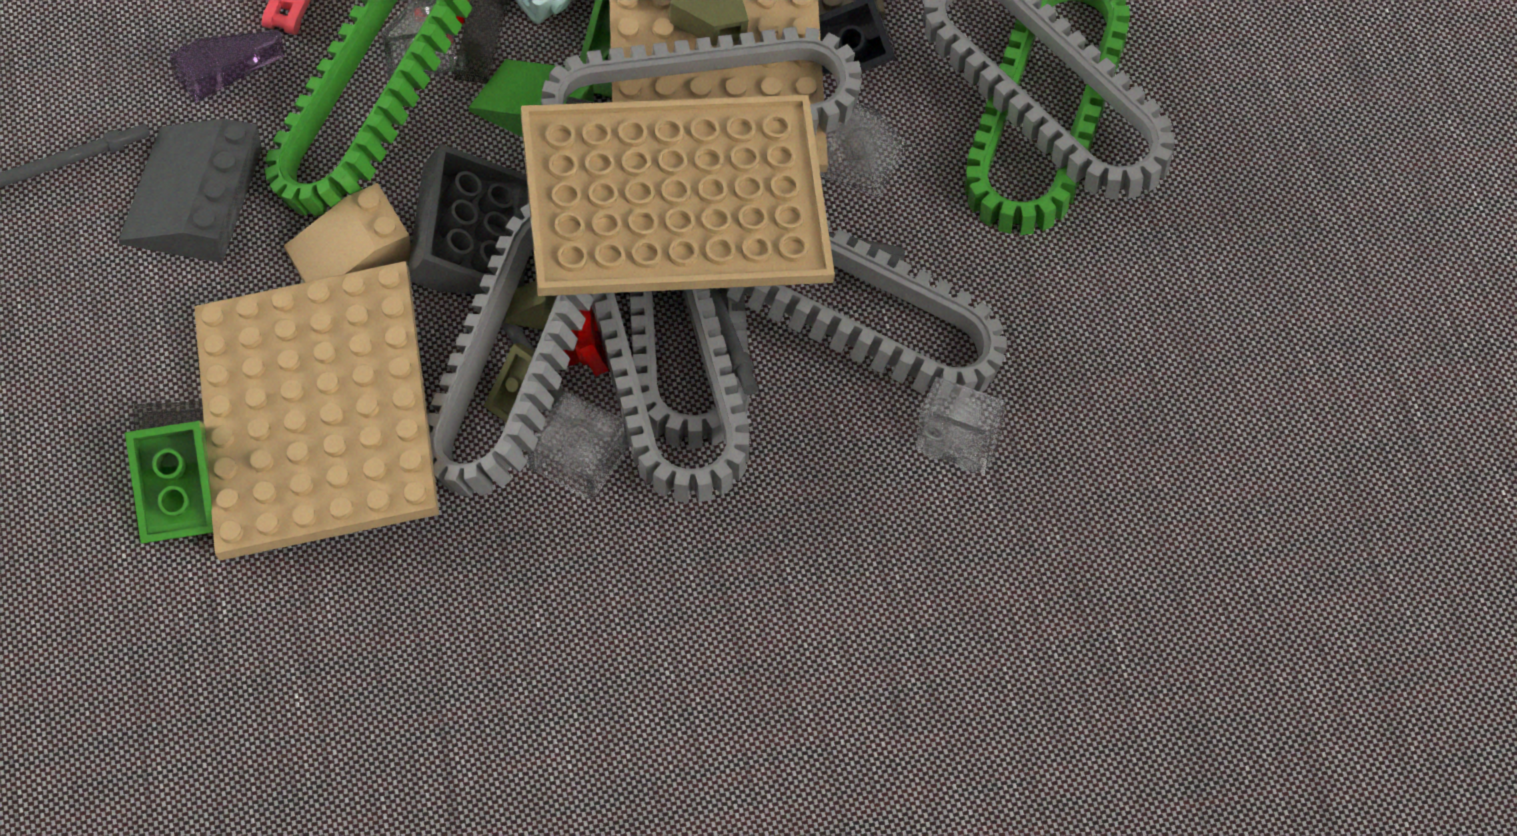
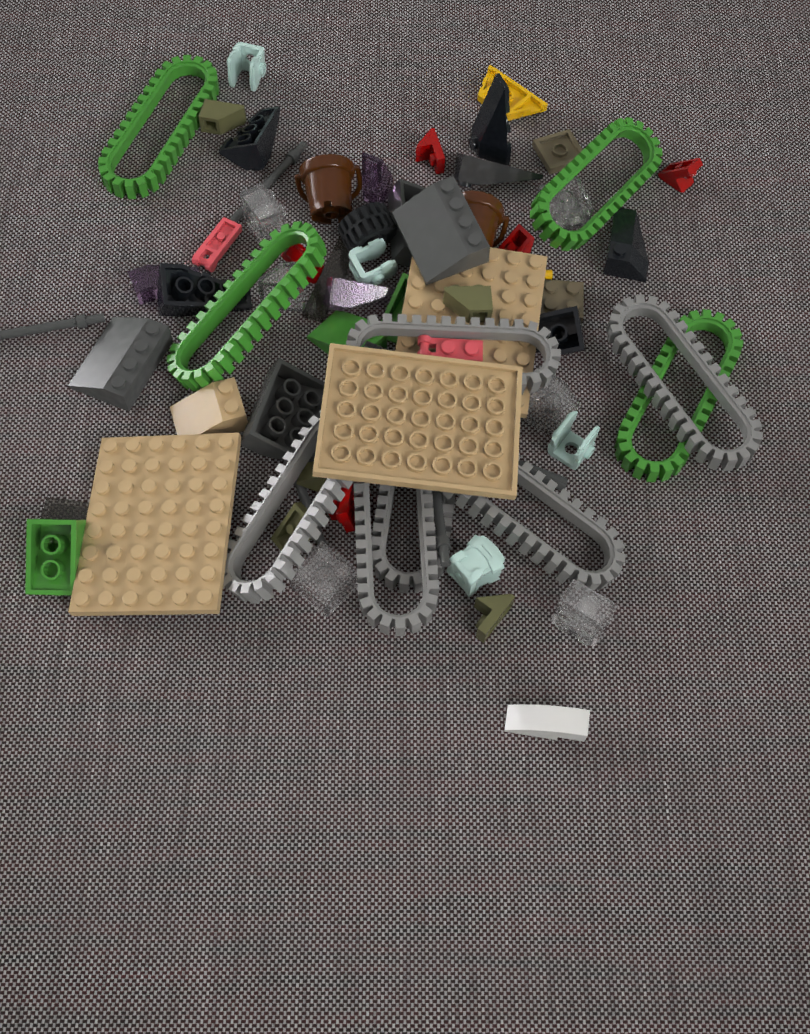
camera: 10 degrees right, 5 degrees up
(273, 70) = (187, 291): none -> black wedge
(521, 32) = (347, 293): none -> clear purple slope
(697, 85) = (451, 348): none -> coral plate
(794, 387) = (476, 564): none -> light aqua piece
(831, 447) = (494, 610): none -> olive slope
(887, 190) = (564, 436): none -> light aqua piece
(936, 578) = (548, 721): none -> white slope

